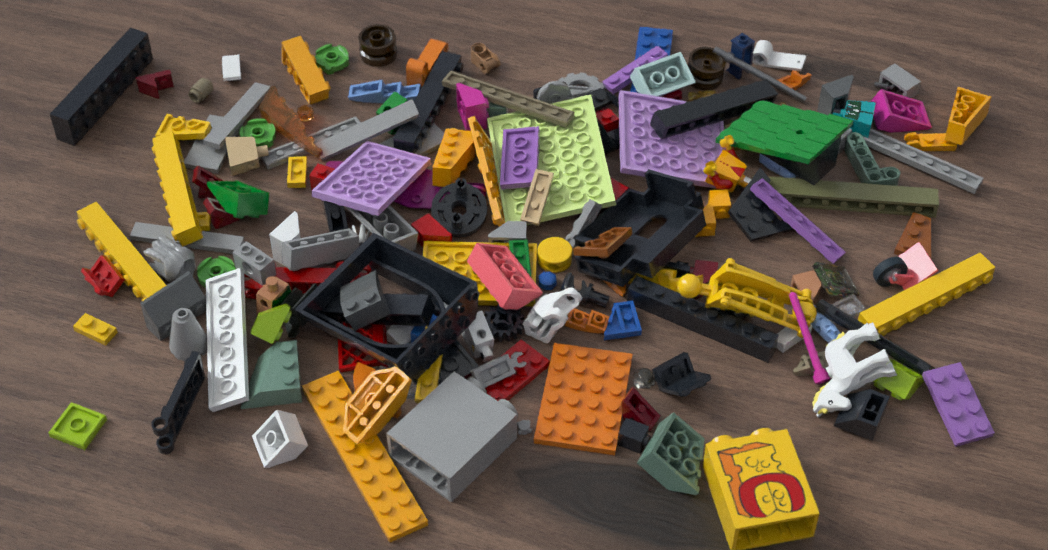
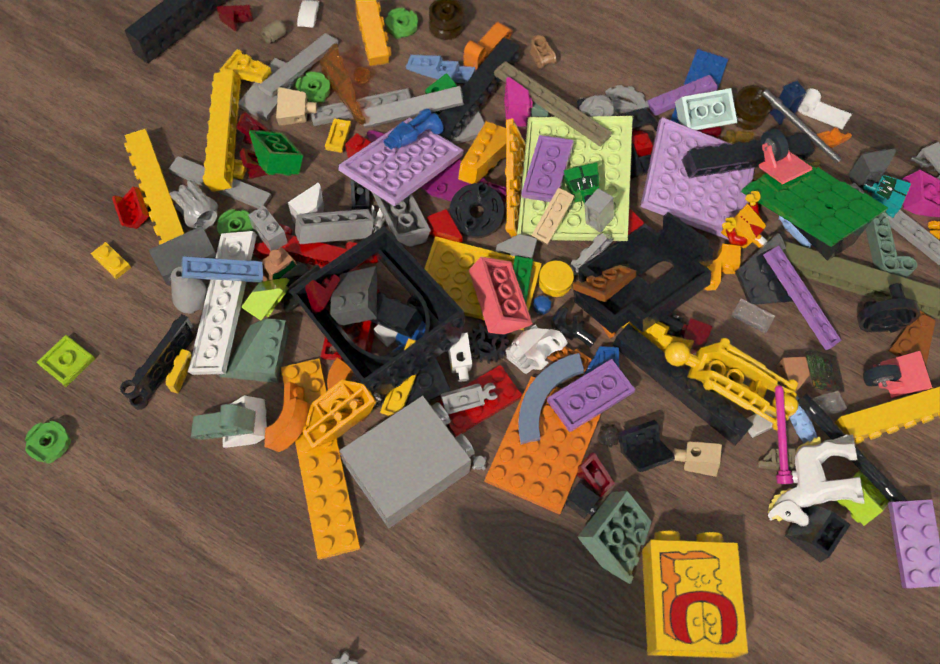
camera: 10 degrees right, 15 degrees up
(87, 508) = (49, 453): none -> bright green plate
(200, 405) = (179, 372): none -> yellow plate
(222, 303) = (222, 269): none -> medium blue plate
(276, 431) = (230, 421): none -> sand green beam
(327, 303) = (320, 293): none -> dark red slope
(328, 425) = (290, 422): none -> orange arch
(372, 151) = (408, 132): none -> blue piece
(560, 161) = (582, 181): none -> green torso
(567, 349) = (540, 390): none -> sand blue tile
(581, 180) = (599, 210): none -> light grey panel
(616, 343) = (590, 395): none -> medium lavender plate
(736, 375) = (700, 457): none -> tan torso
(742, 104) = (778, 160): none -> coral plate
(755, 248) = (753, 315): none -> clear plate
(881, 216) = (889, 314): none -> black piece

